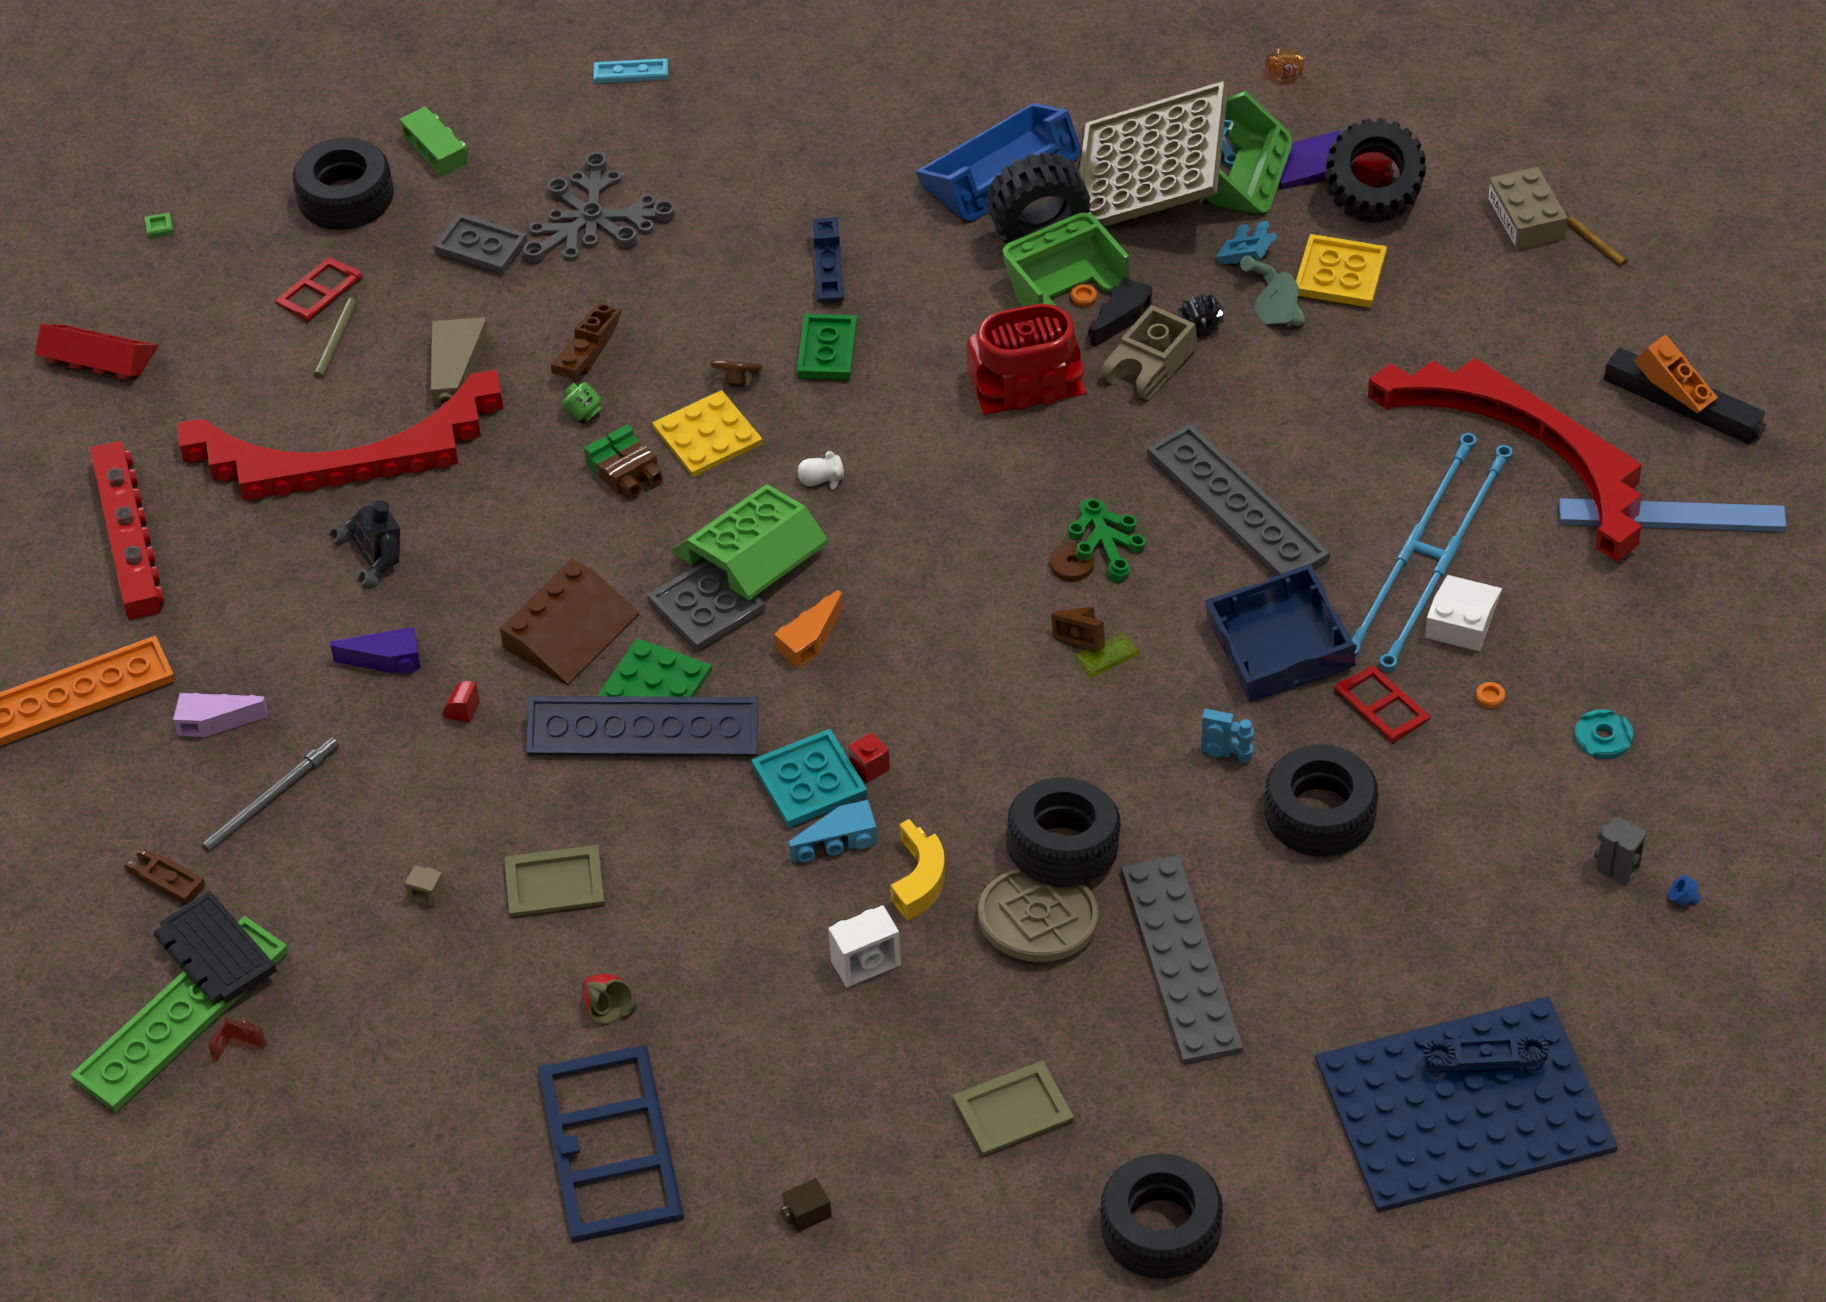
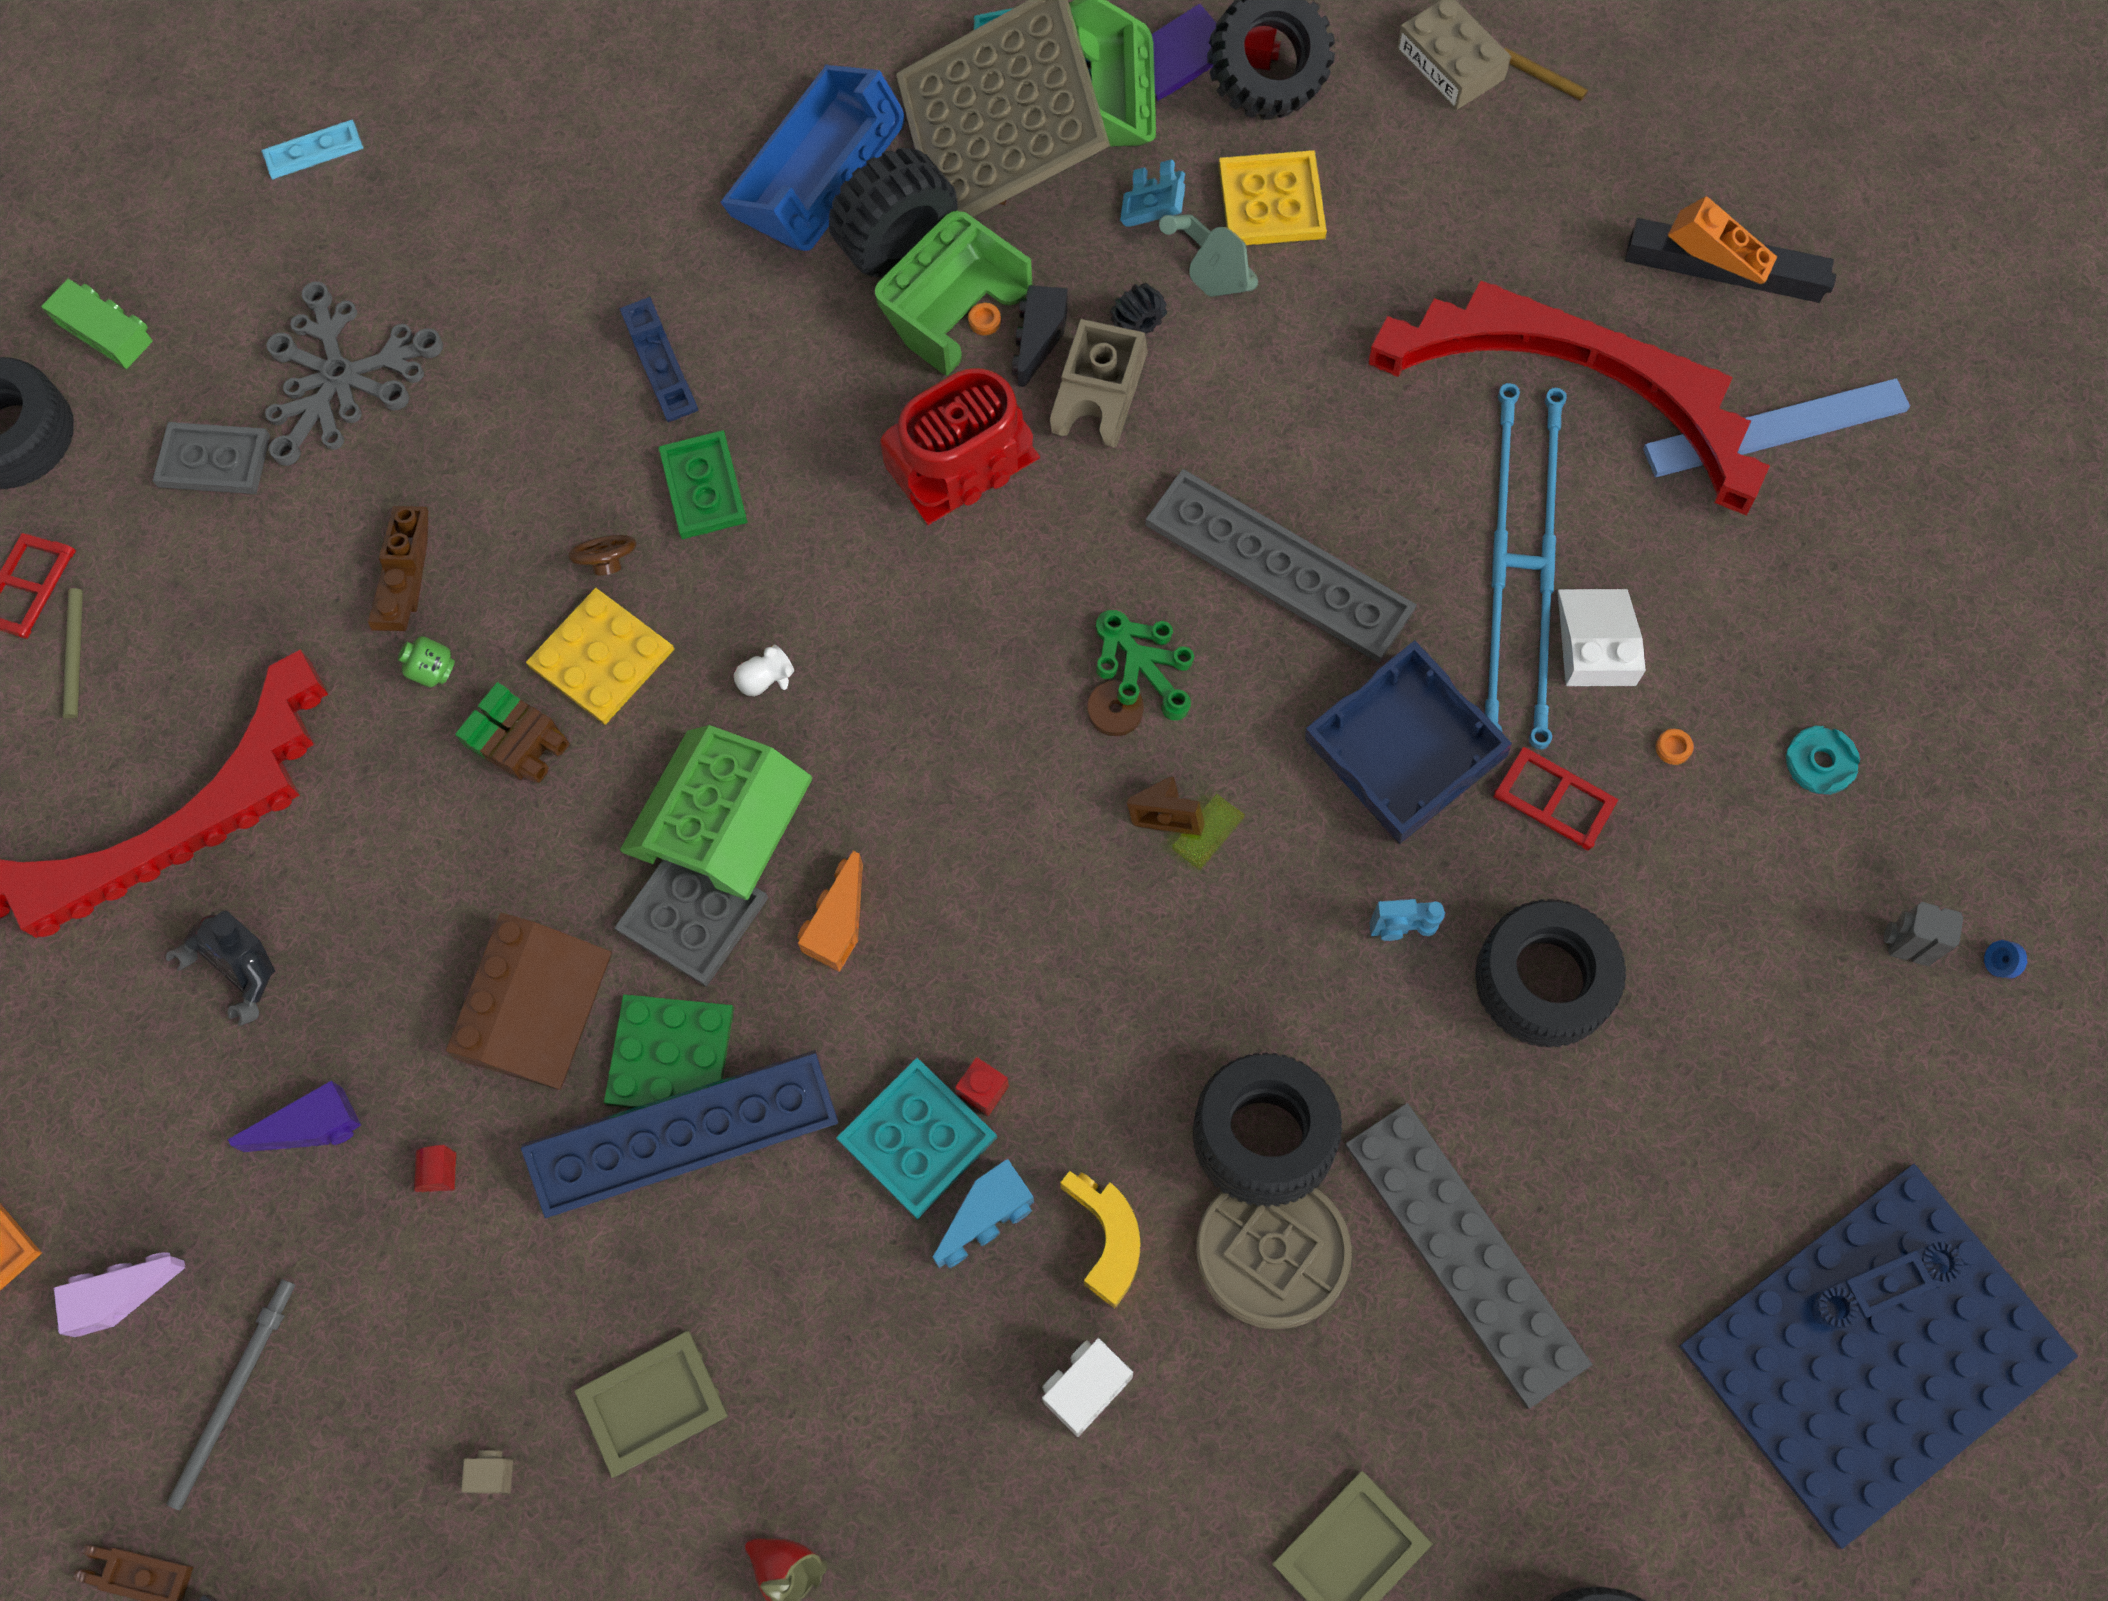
camera: 20 degrees left, 20 degrees up
(454, 354) = (237, 640): dark tan slope -> none

